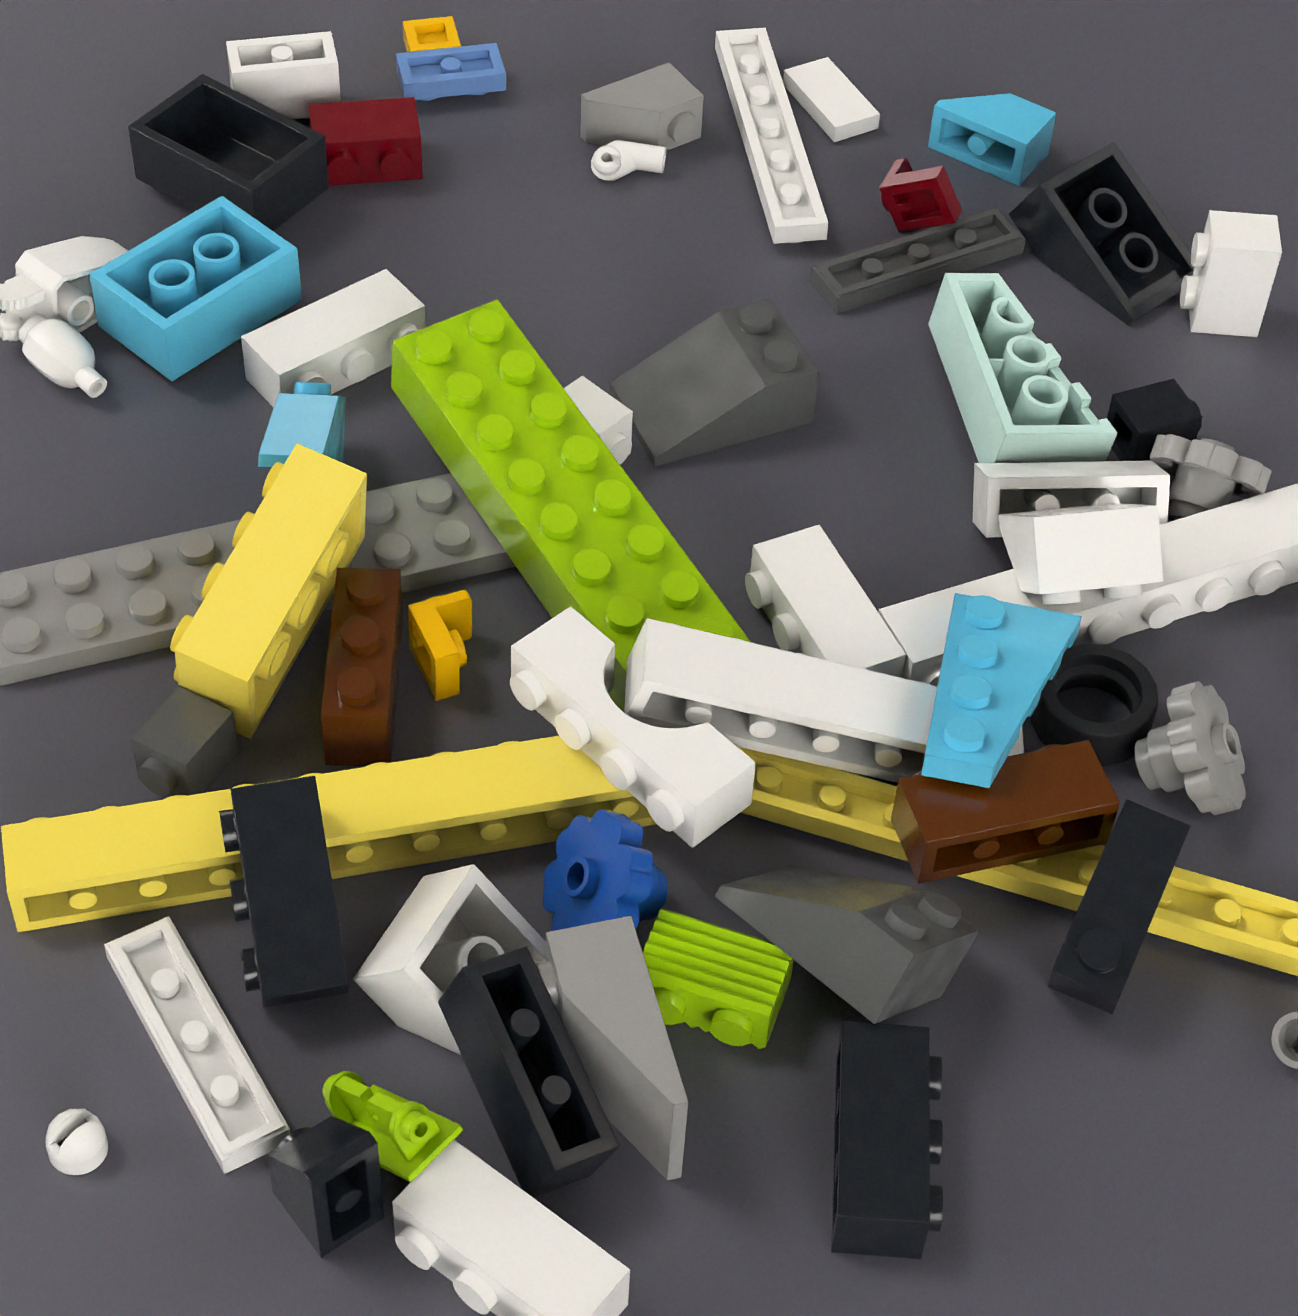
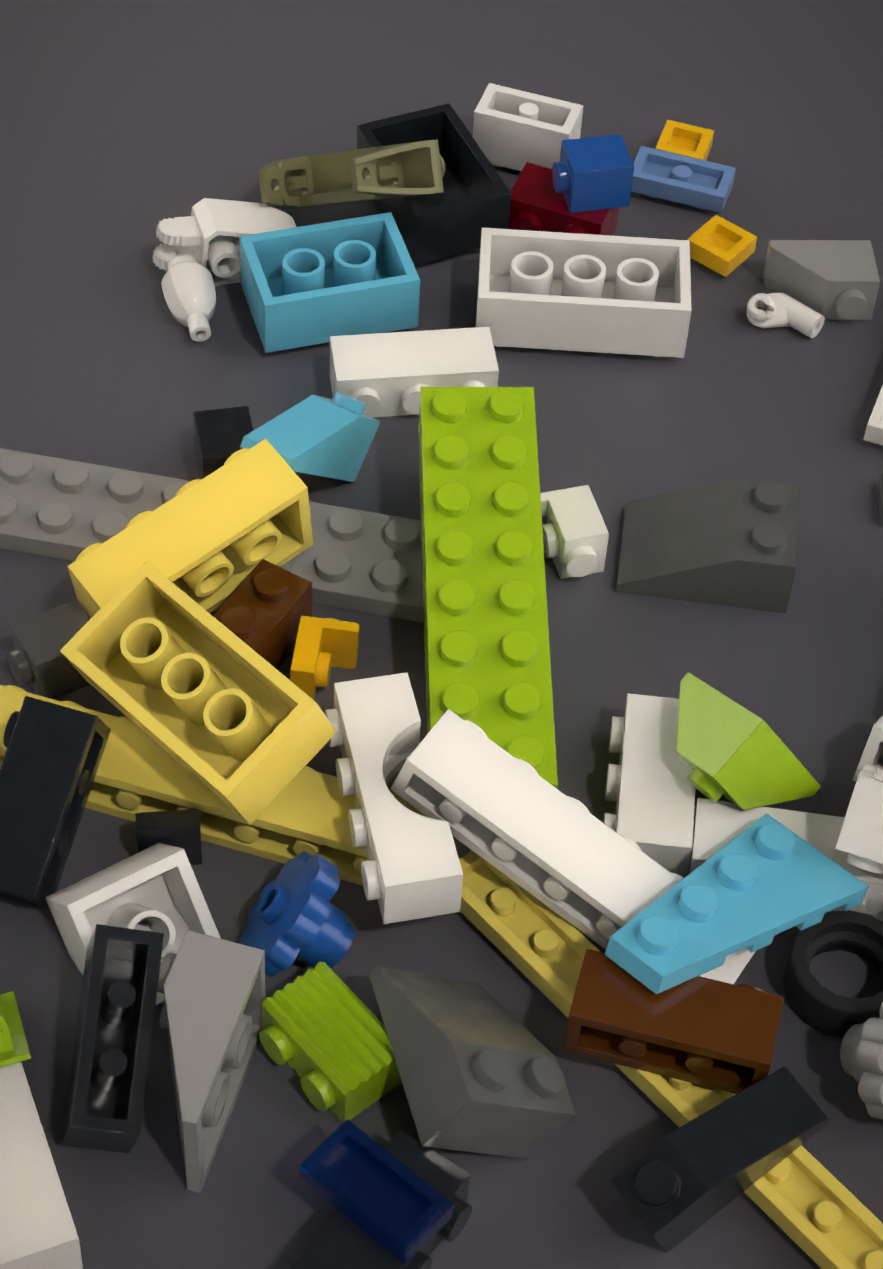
camera: 30 degrees right, 0 degrees up
(166, 172) = (353, 176): none -> olive hose
(208, 484) = (218, 436): none -> black brick
(389, 709) = (199, 692): none -> light yellow brick
(390, 88) = (594, 173): none -> blue brick
(426, 856) = (172, 828): none -> black tile
(445, 204) = (584, 292): none -> white brick
(530, 119) = (721, 245): none -> yellow plate
(866, 1083) = (376, 1191): none -> clear blue tile
(888, 548) = (735, 751): none -> lime slope

